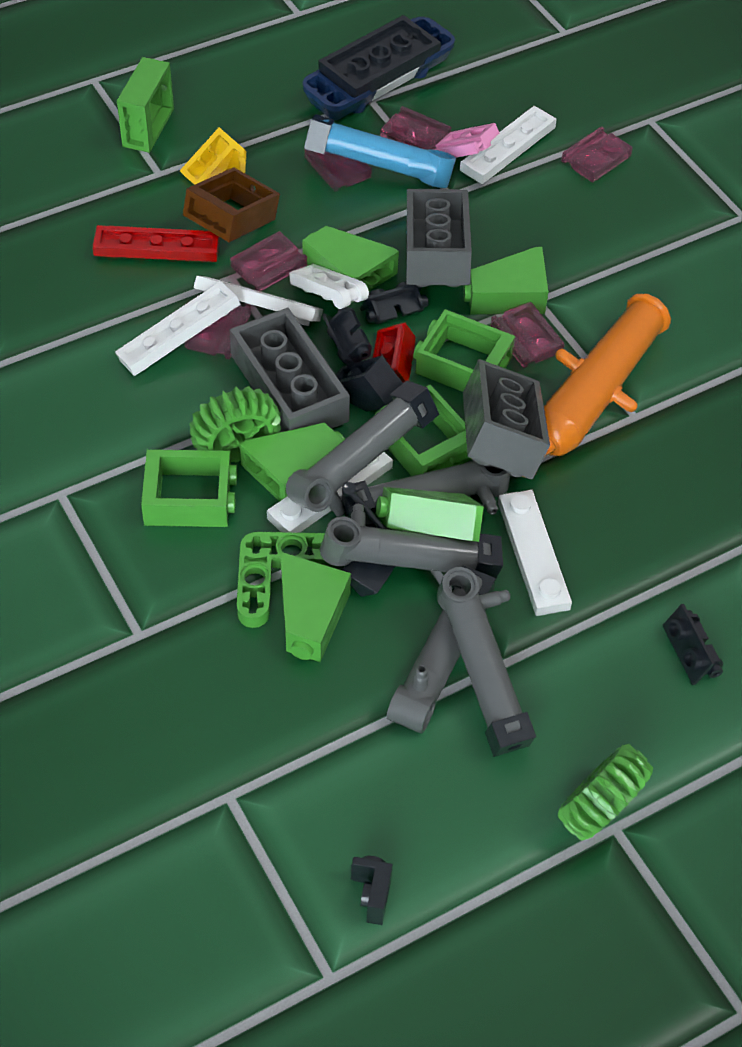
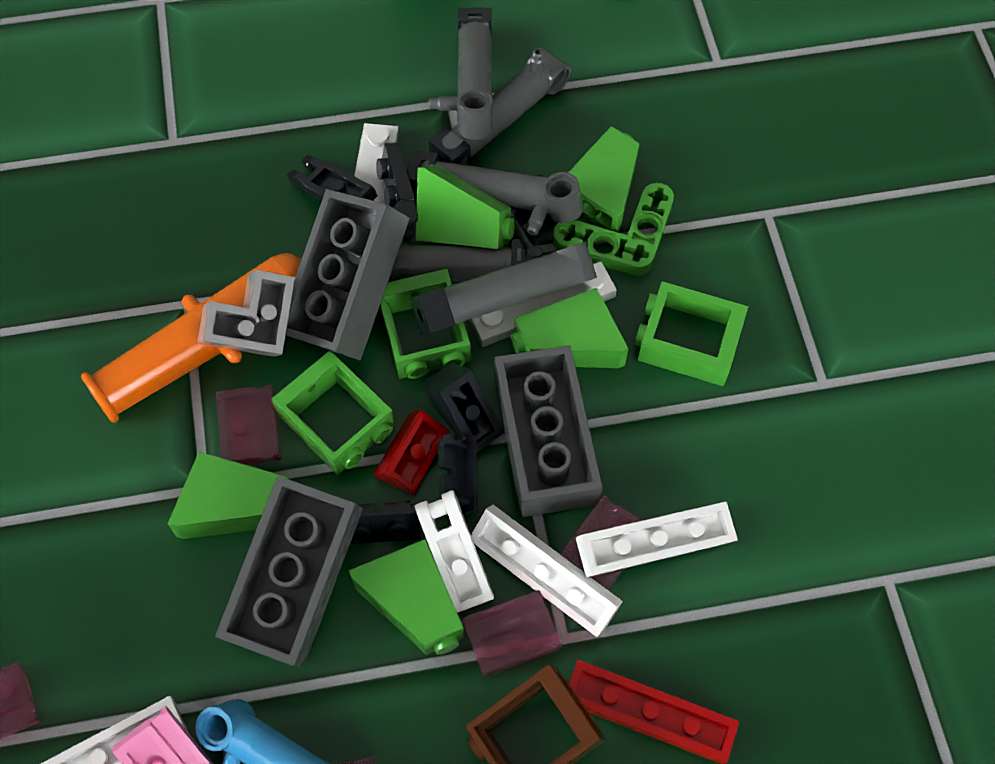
camera: 160 degrees left, 10 degrees up
(233, 419) = (627, 369): bright green gear -> none
(499, 518) = (397, 188): none -> black hinge
(558, 351) = (256, 326): none -> light grey brick
(566, 522) = (328, 176): none -> black hinge
(689, 643) = (280, 61): black hinge -> none

